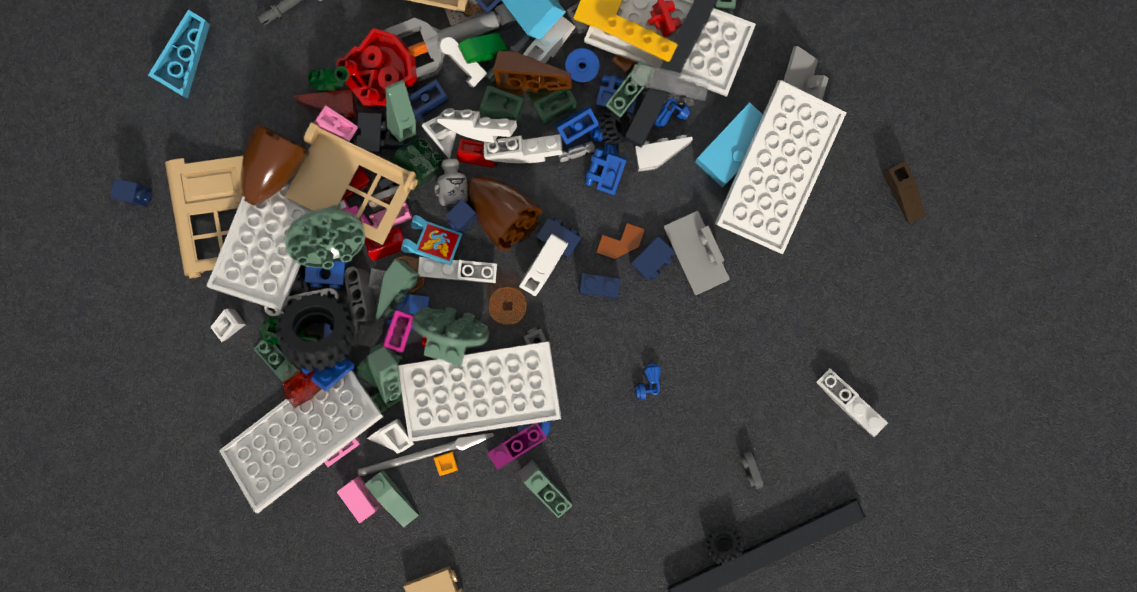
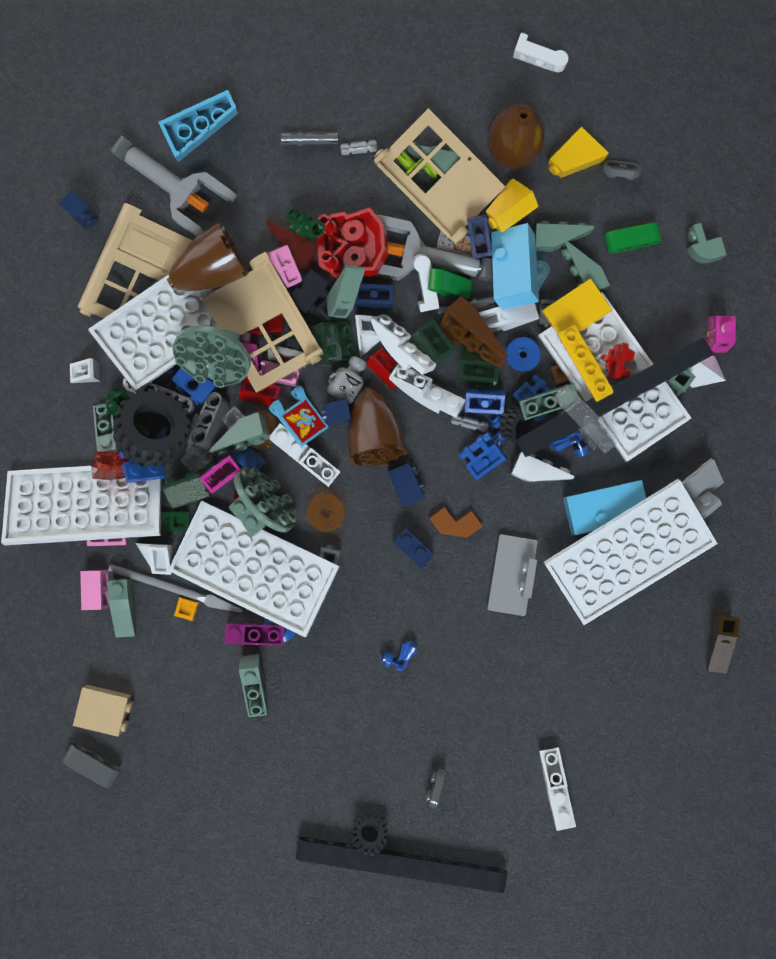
camera: 30 degrees right, 0 degrees up
(205, 120) = (181, 190): none -> light grey piece
(385, 374) = (185, 502): sand green slope -> none
(543, 265) = (377, 499): white slope -> none
(653, 258) = (472, 555): dark blue brick -> none

